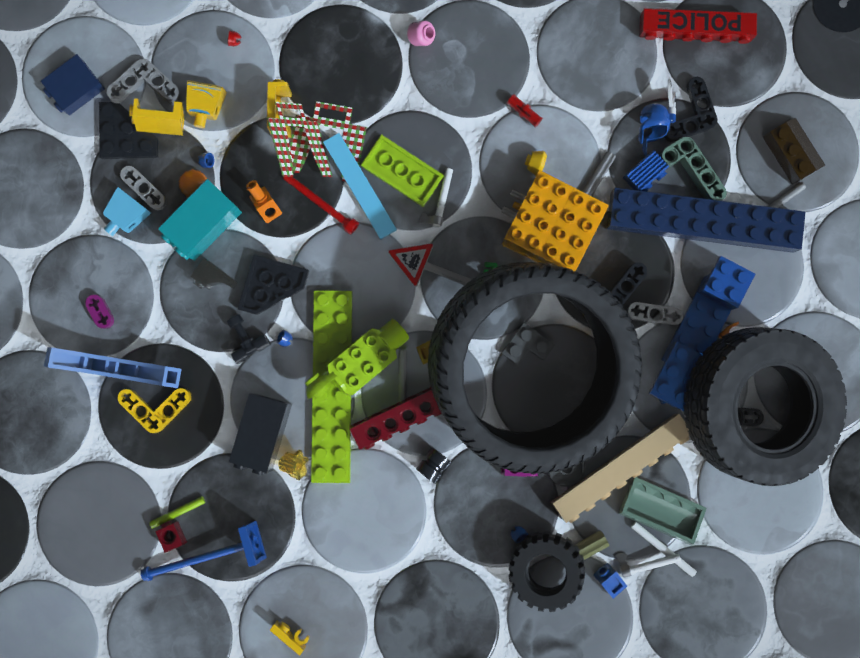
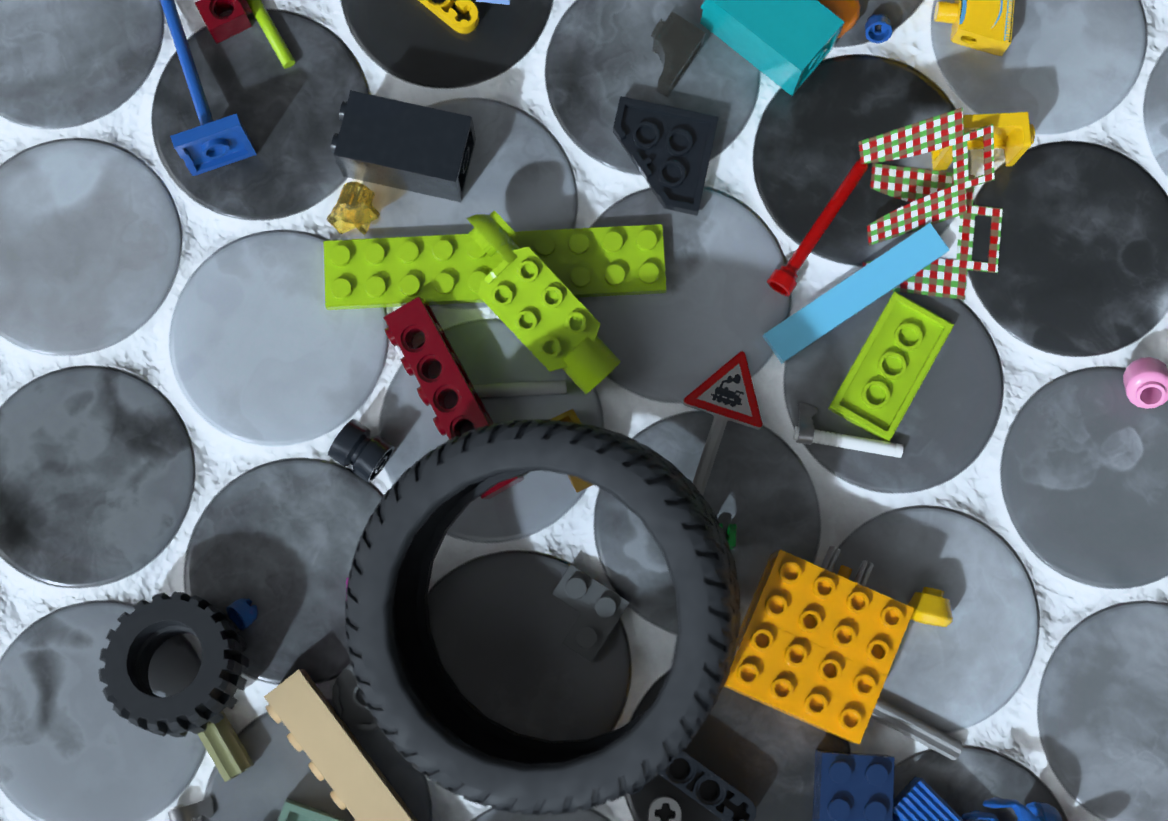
camera: 85 degrees right, 5 degrees down
(232, 38) = (1099, 57): red hinge -> none
(248, 344) = (558, 120): black bar -> none
(262, 201) = (814, 126): orange bracket -> none
(283, 338) = (574, 178): blue hinge -> none
(283, 632) = (60, 211): yellow plate -> none
(524, 110) = (1024, 582): red pin -> none
(610, 580) = (162, 787): blue bracket -> none

